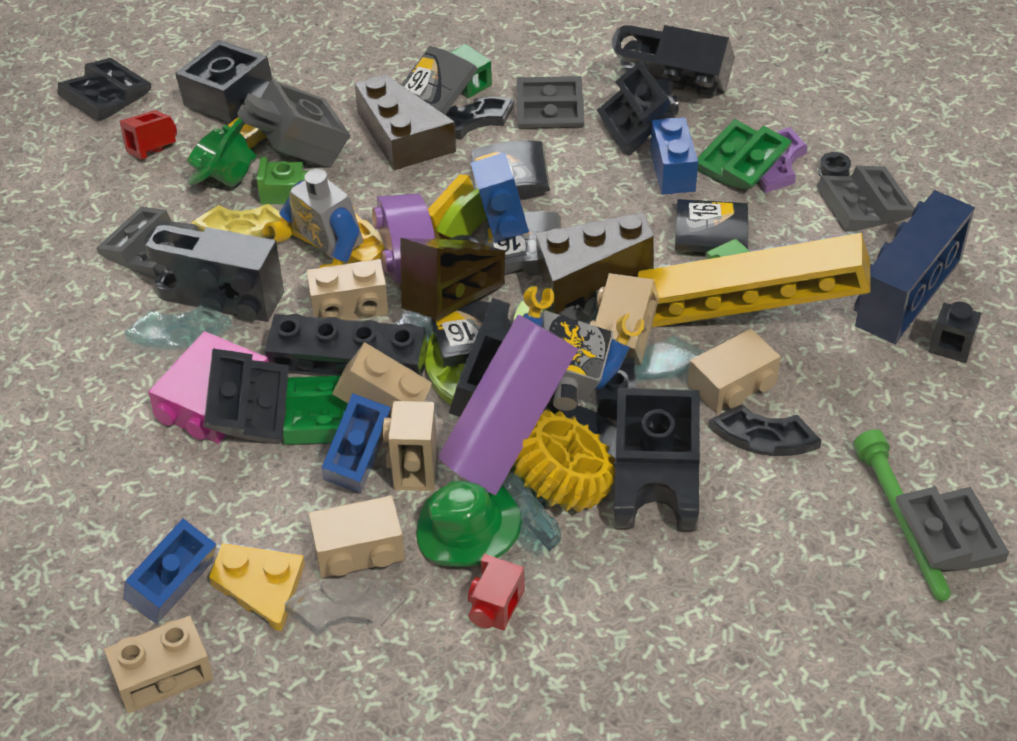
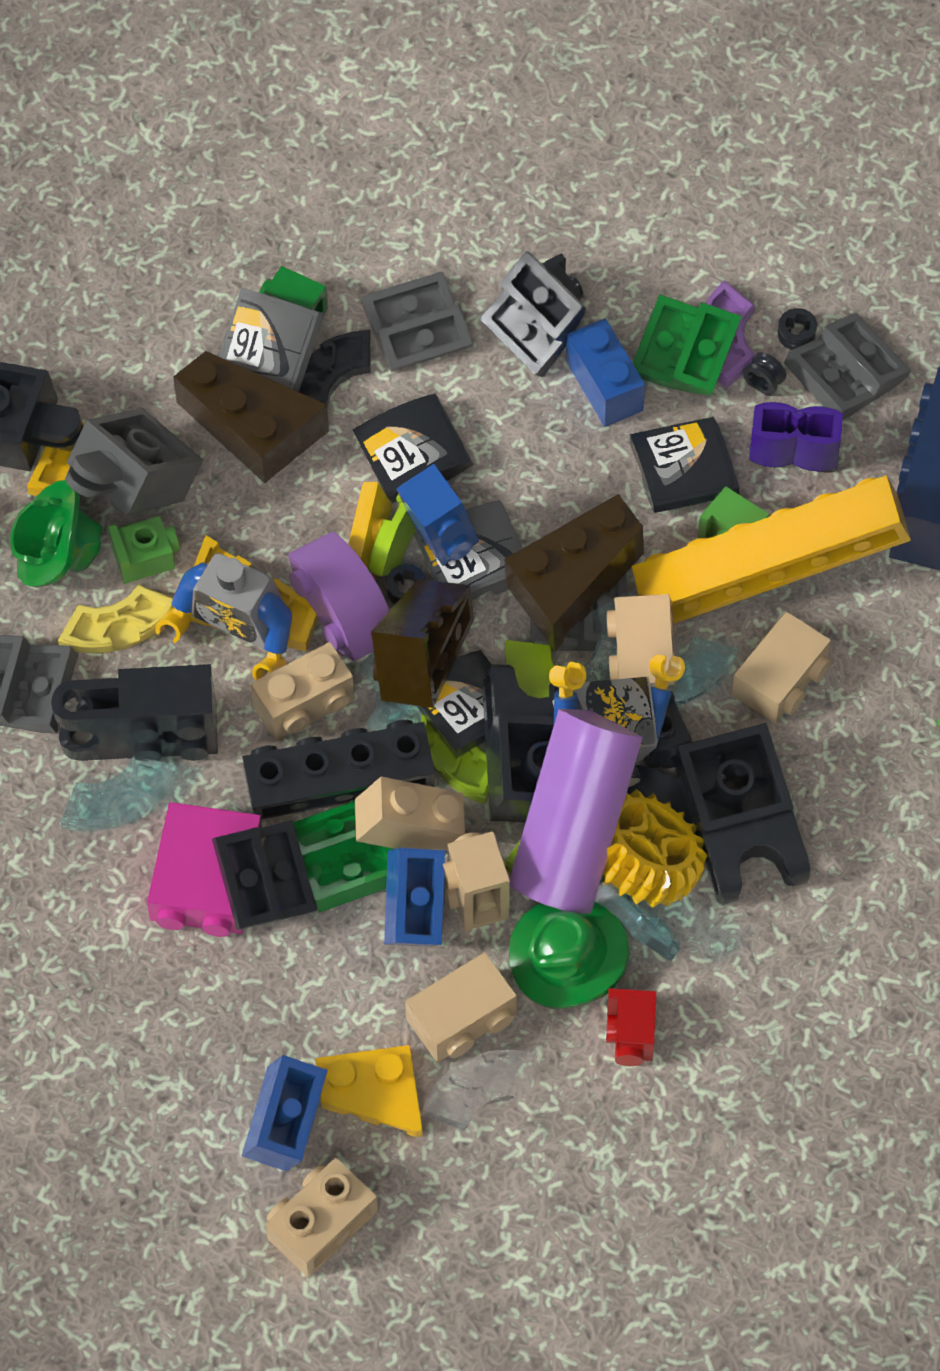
camera: 20 degrees left, 15 degrees up
(678, 54) = (561, 220): black brick -> none
(765, 435) = (837, 737): black tile -> none
(797, 185) = (764, 373): none -> black bush
(799, 219) = (794, 436): none -> dark purple brick

